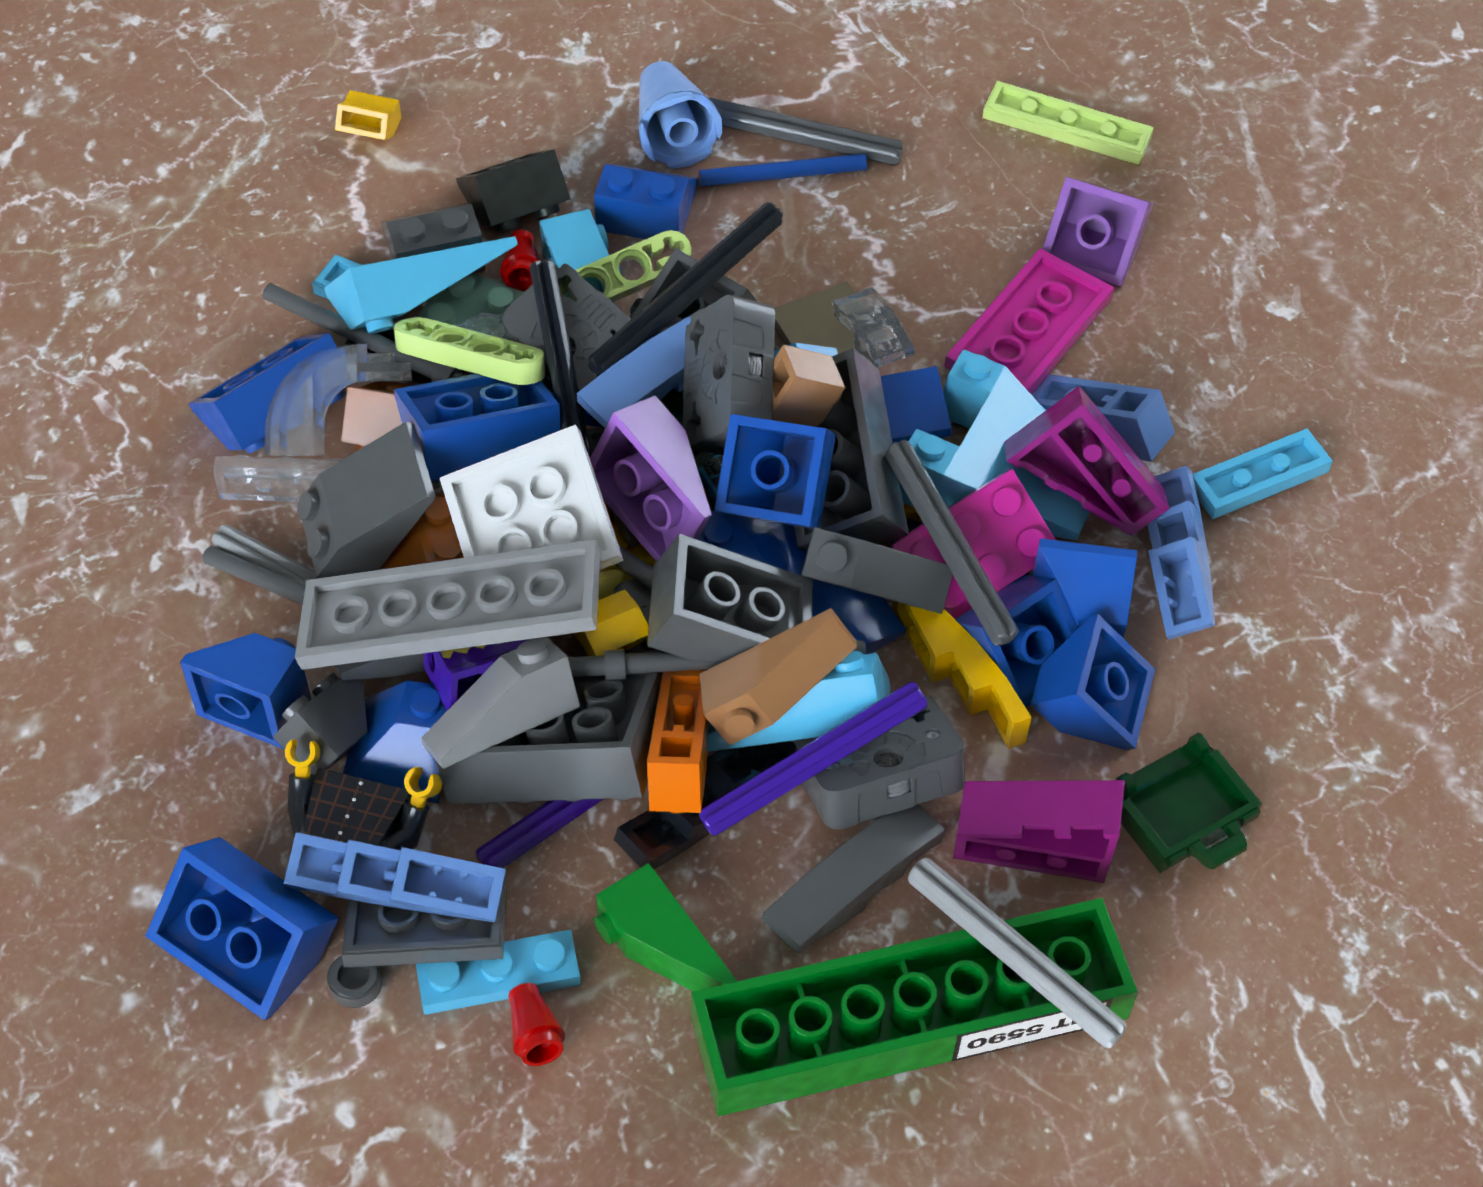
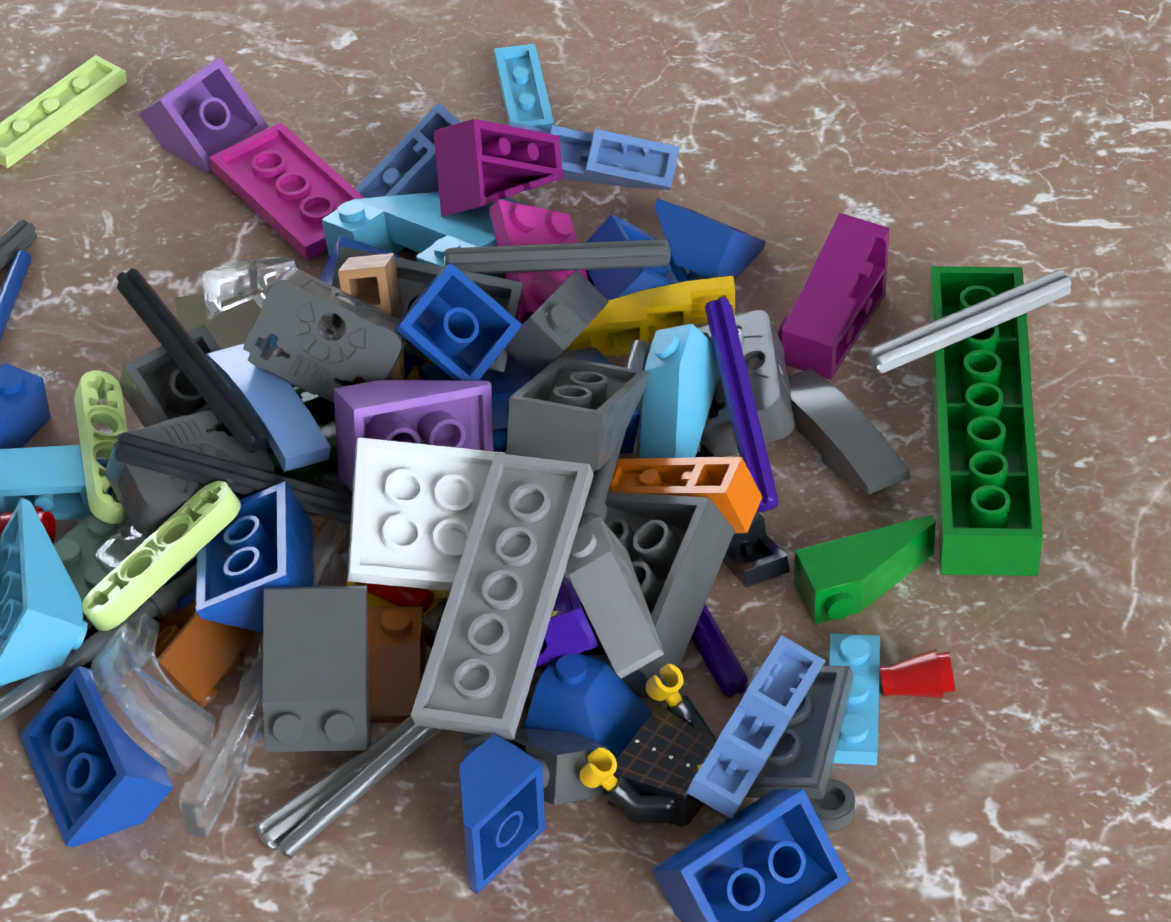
camera: 70 degrees left, 10 degrees down
(772, 676) = (663, 405): medium nougat slope -> none
(1090, 578) = (621, 192): blue slope -> none
(1186, 805) = (813, 206): dark green piece -> none

